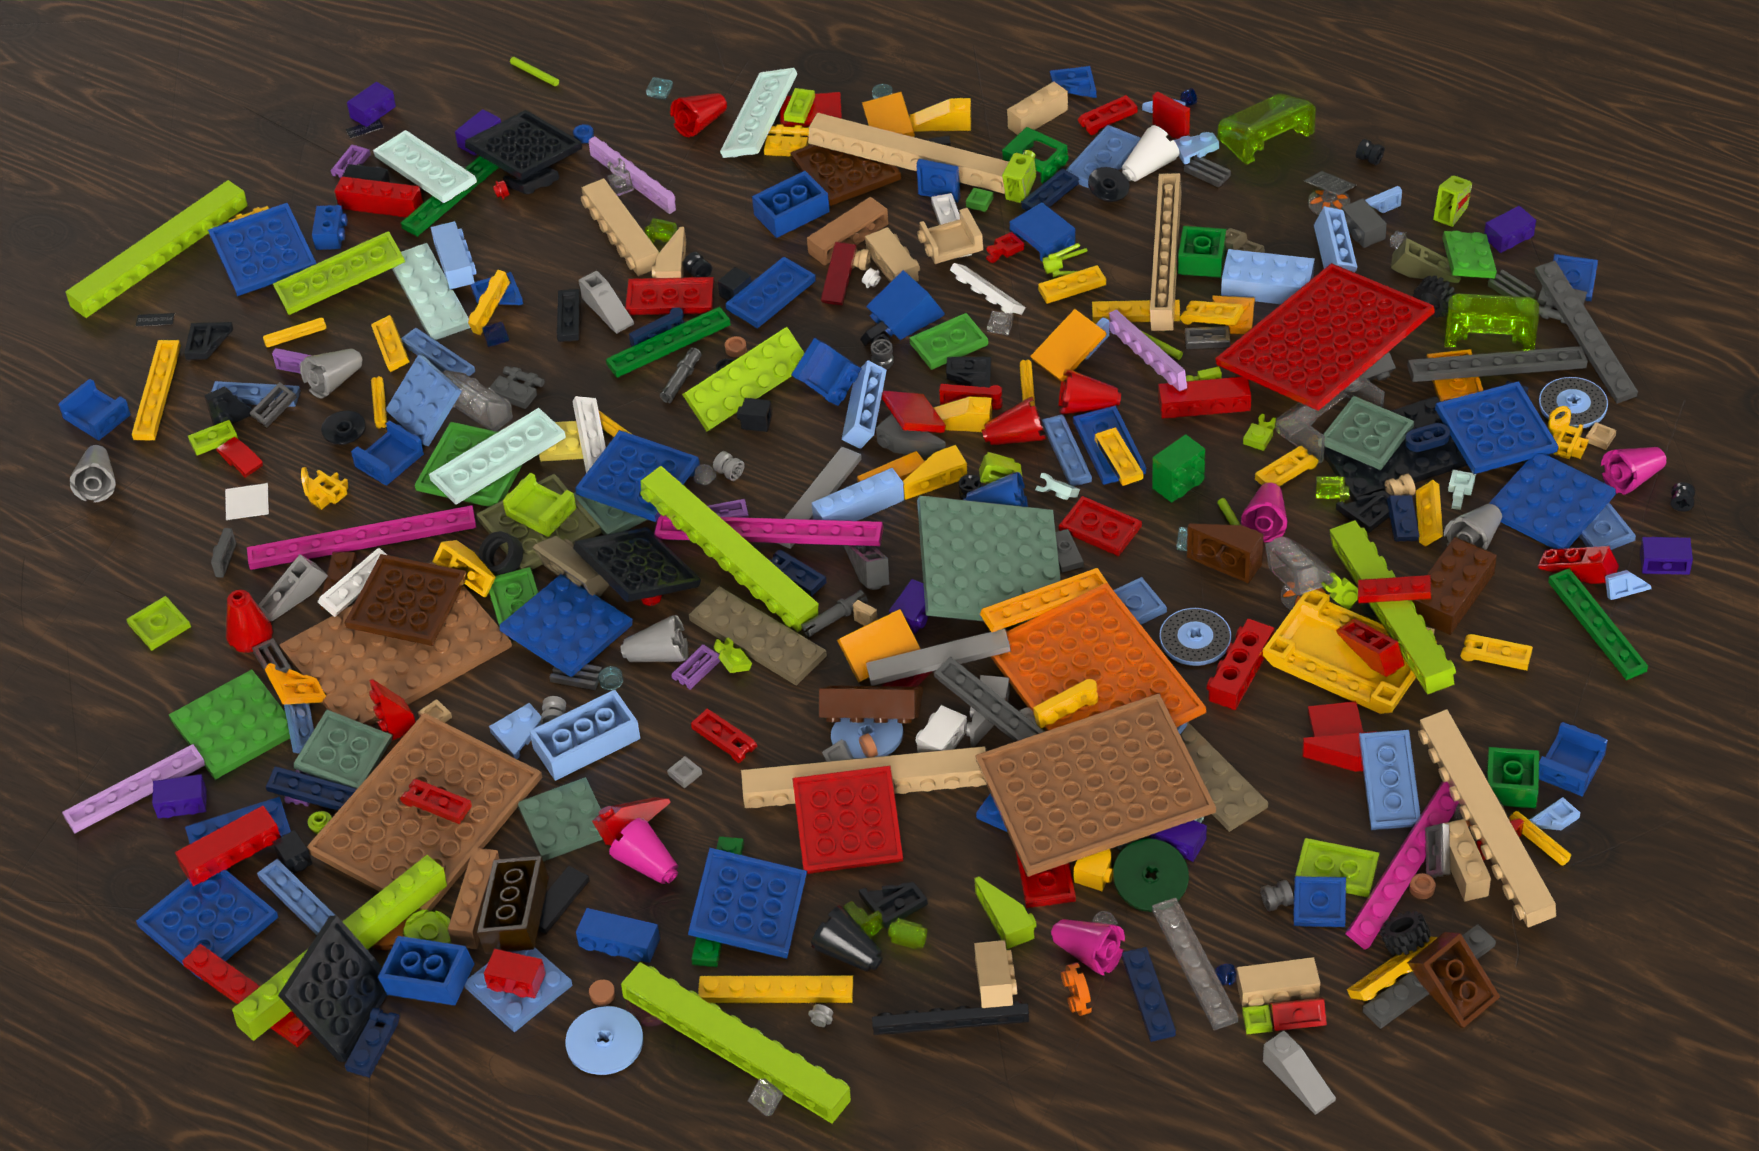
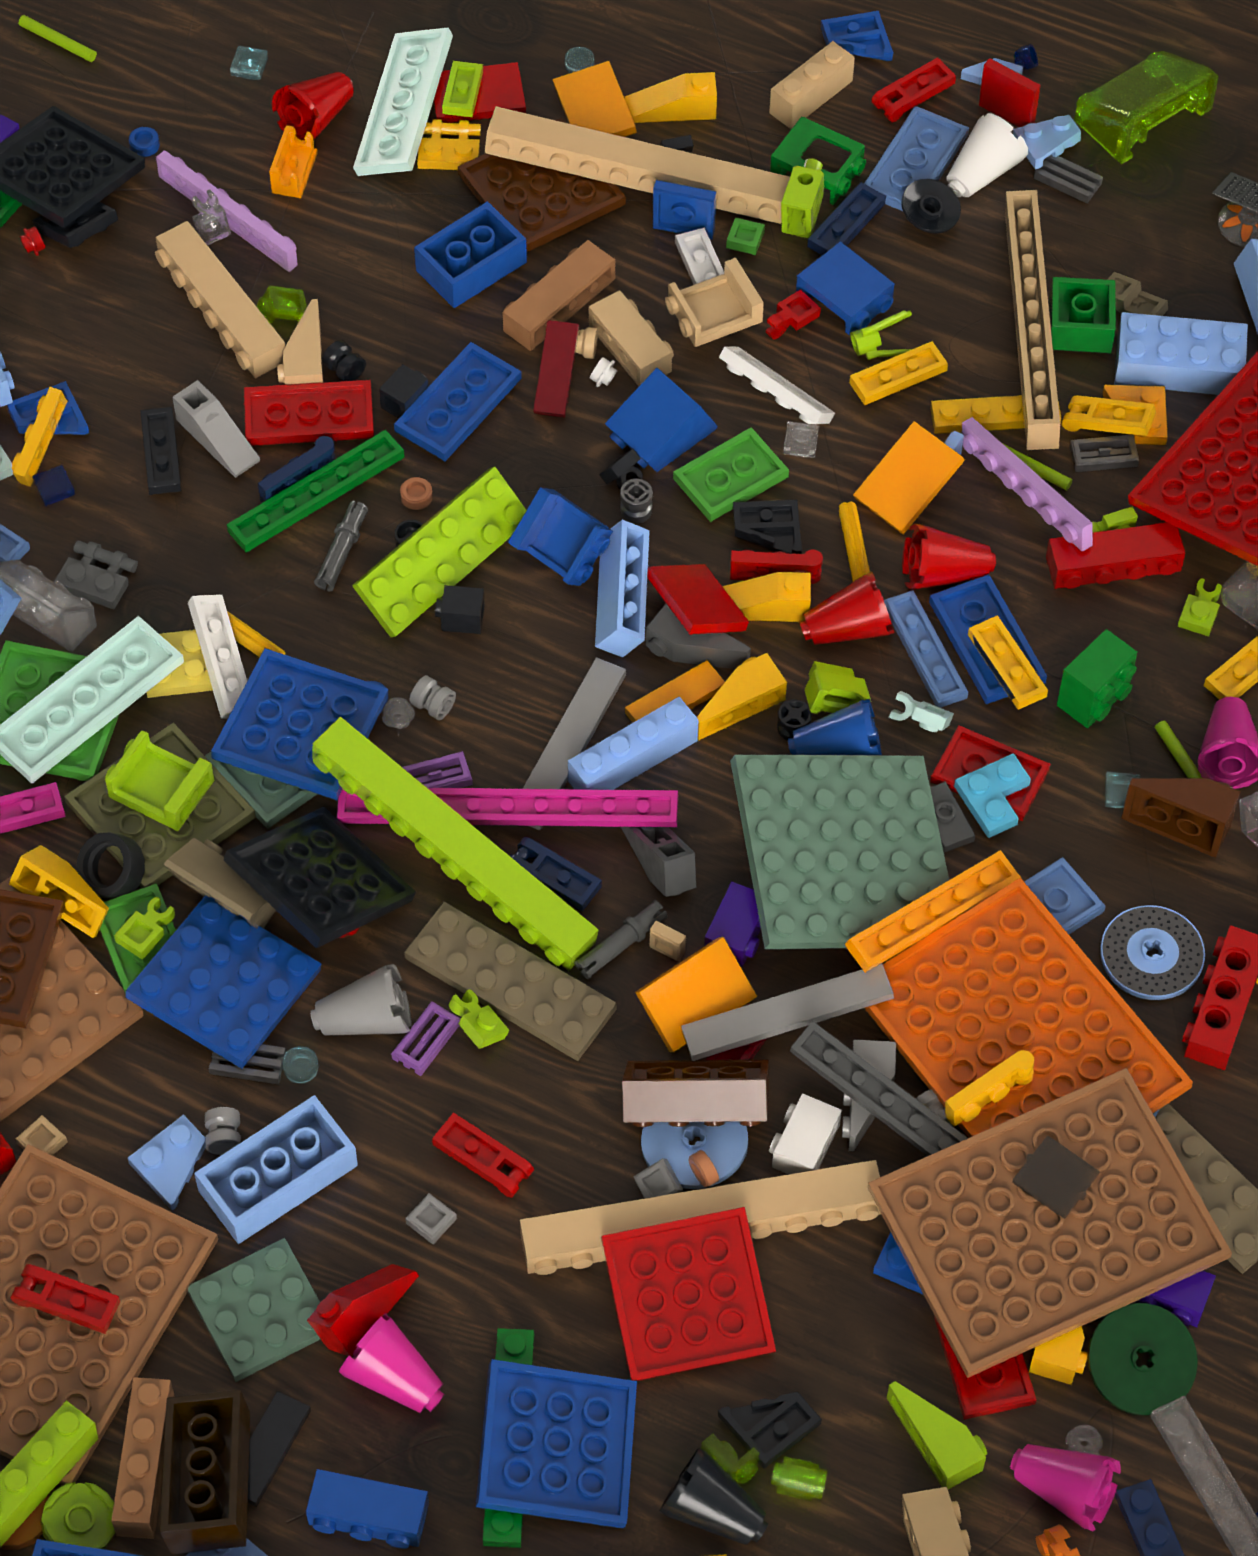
camera: 10 degrees left, 10 degrees up
(516, 592) = (144, 931): none -> lime plate
(679, 148) = (292, 164): none -> light orange hinge
(1094, 535) = (986, 792): none -> medium azure plate
(1102, 756) = (1056, 1177): none -> clear smoke piece

